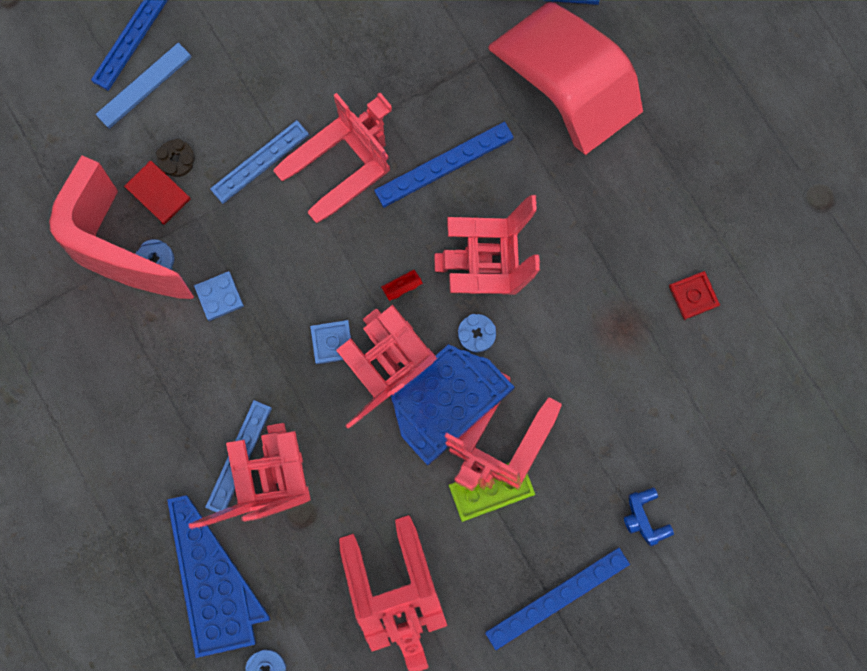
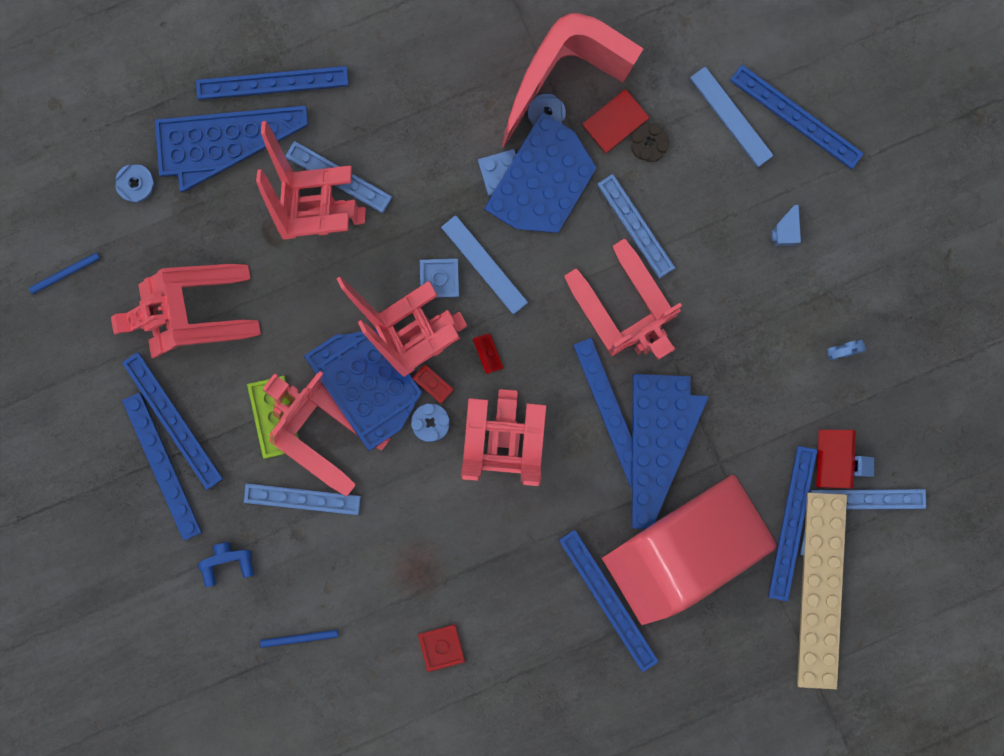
camera: 90 degrees right, 5 degrees up
(146, 539) = (272, 83): none -> blue plate
(221, 253) = (542, 179): none -> blue plate
(248, 21) = (788, 229): none -> medium blue slope
(313, 301) = (484, 265): none -> medium blue tile
(439, 334) = (433, 384): none -> red plate
(456, 113) = (661, 430): none -> blue wing
(509, 594) = (172, 421): none -> blue plate
(570, 451) = (302, 499): none -> medium blue tile
(624, 145) = (608, 601): none -> blue plate
(708, 434) = (299, 638): none -> blue bar

